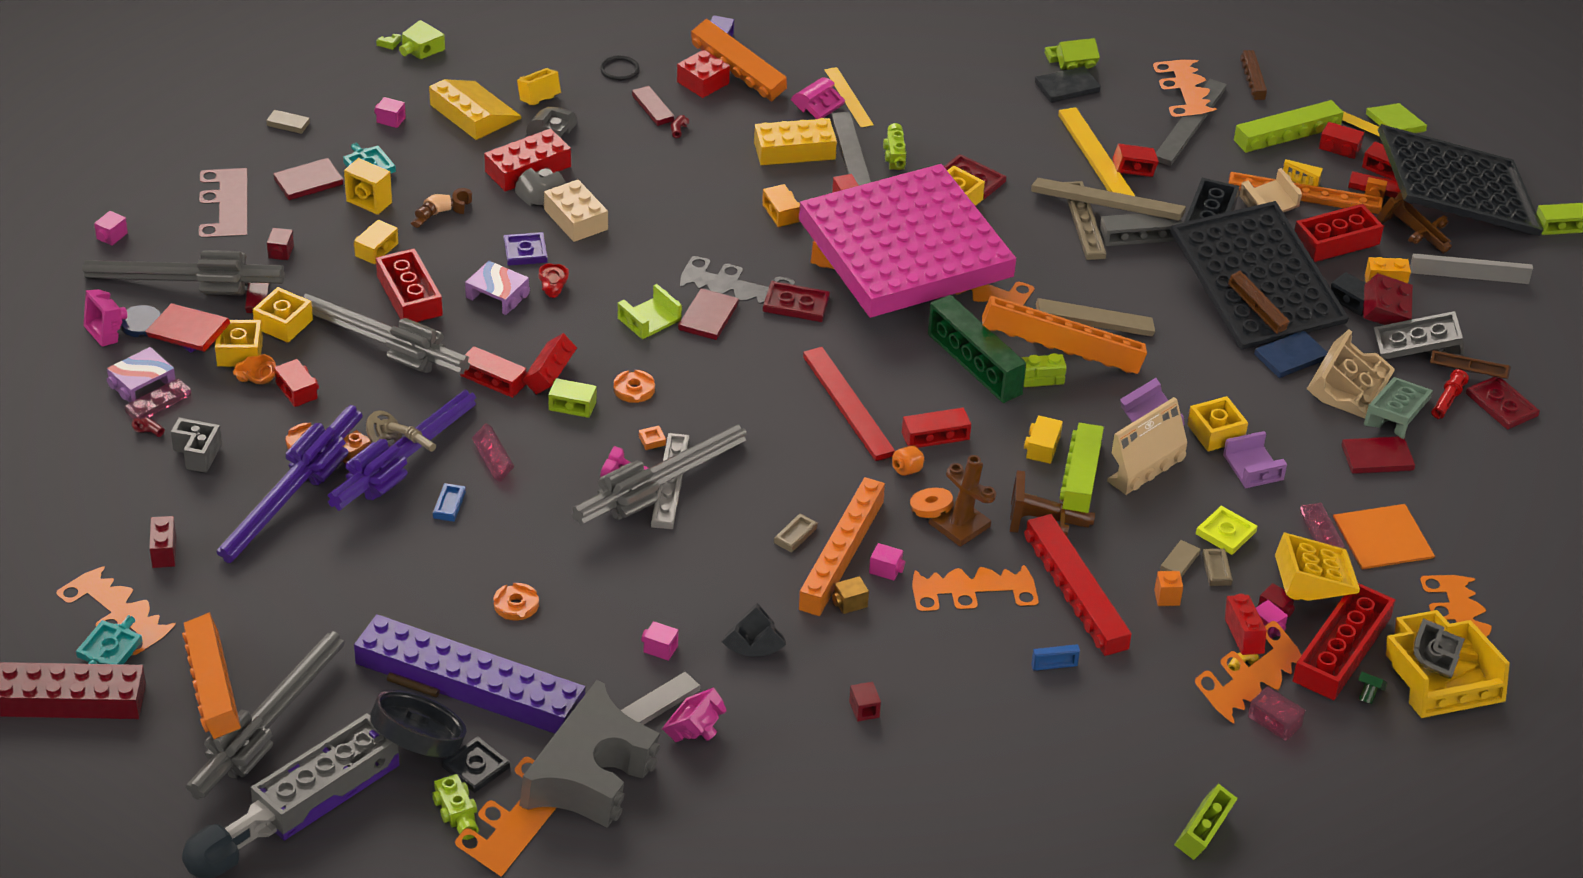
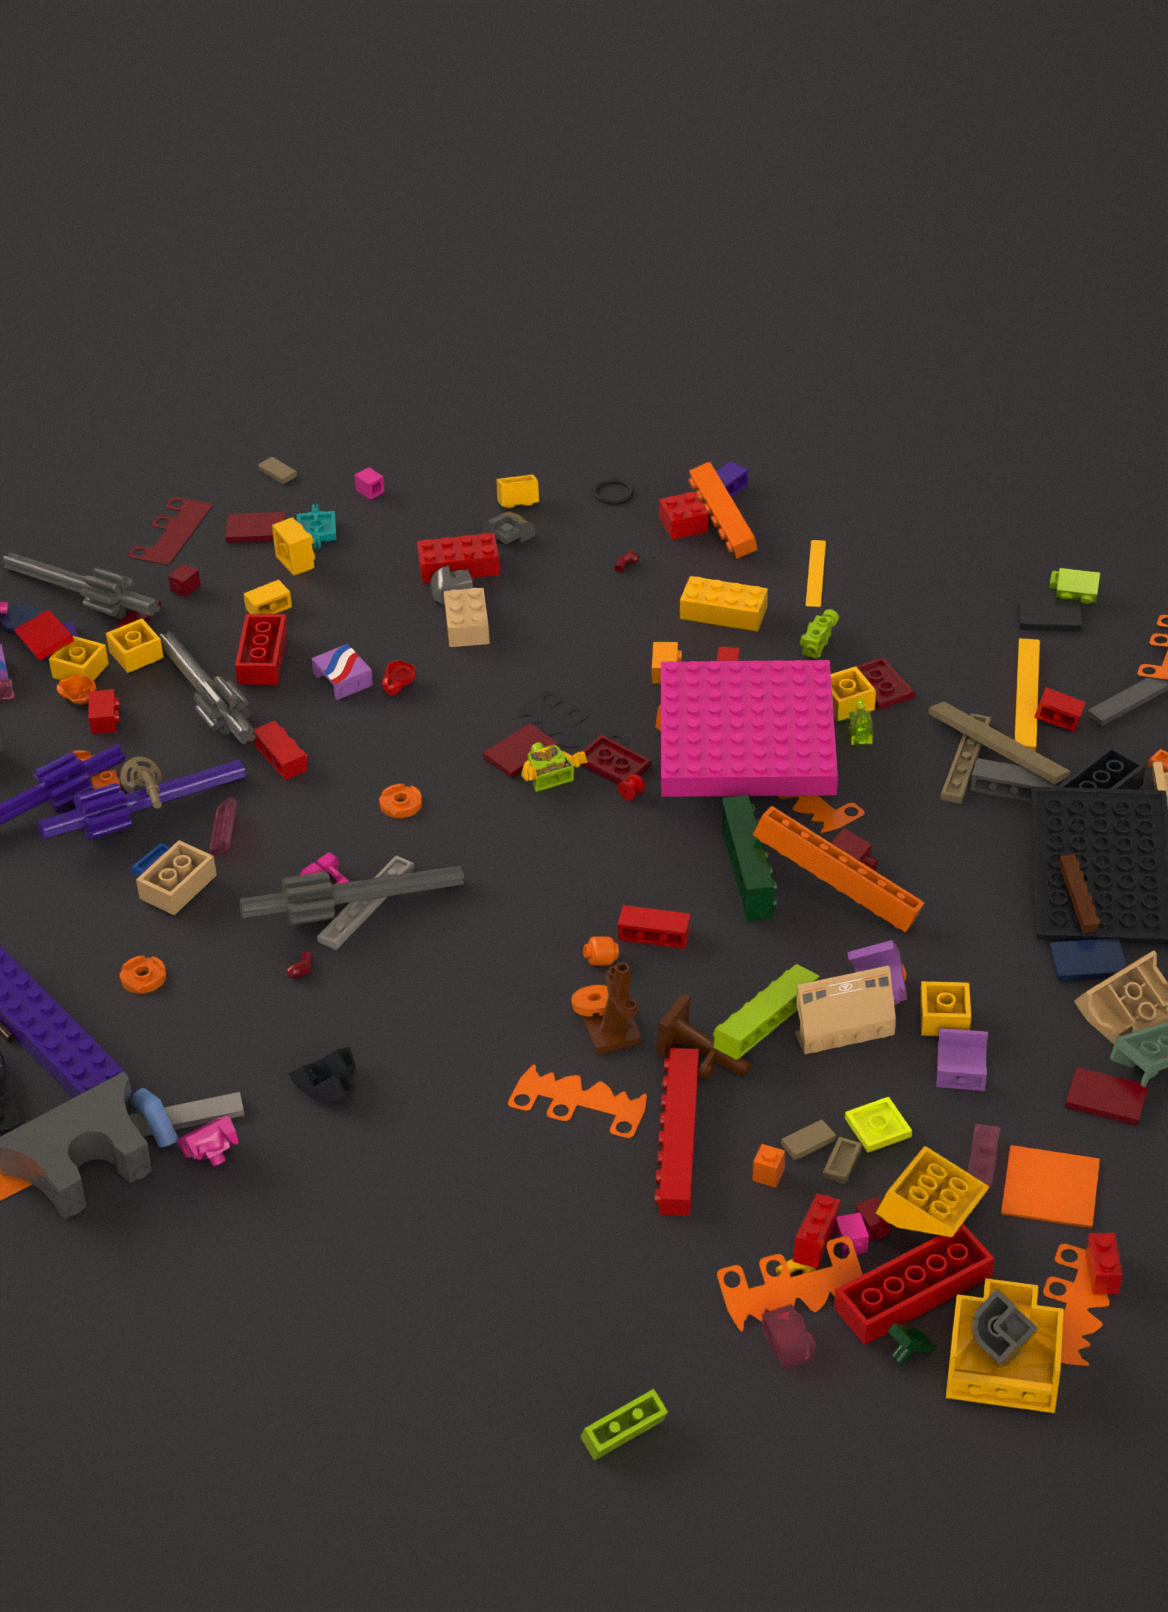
camera: 30 degrees right, 0 degrees up
(111, 228) = (55, 529): dark pink brick -> none
(389, 42) = (421, 418): lime tile -> none
(422, 41) = (445, 423): lime torso -> none
(440, 203) = (351, 579): reddish brown piece -> none
(471, 107) = (448, 495): yellow slope -> none
(488, 508) = (176, 877): none -> tan brick
(525, 248) = (398, 642): tile -> none
(549, 363) = (332, 756): red brick -> none
(572, 398) = (332, 795): lime brick -> none
(638, 708) = (155, 1115): none -> medium blue brick
(651, 315) = (465, 737): lime panel -> none
(652, 437) = (377, 855): orange plate -> none
(653, 105) = (616, 535): tile -> none
(658, 551) = (302, 967): none -> dark red arm
(660, 640) = (238, 1054): dark pink brick -> none
(749, 319) = (550, 766): none -> torso
(795, 532) = (445, 989): dark tan tile -> none
(818, 98) = (778, 567): dark pink brick -> none
(831, 318) = (634, 785): none -> red wheel
(841, 546) = (473, 1016): orange brick -> none
(849, 404) = (589, 877): tile -> none
(850, 147) = (777, 623): tile -> none
(850, 595) = (446, 1068): pearl gold brick -> none
(865, 701) = (382, 1179): dark red brick -> none
(886, 562) = (505, 1046): dark pink brick -> none
(989, 211) = (860, 725): none -> clear neon green brick
(1043, 439) = (754, 971): yellow brick -> none
(1044, 370) = (803, 899): lime brick -> none
(1055, 657) = (601, 1198): blue tile -> none
(1098, 317) = (895, 860): dark tan tile -> none
(1467, 579) = (1103, 1263): none -> red brick

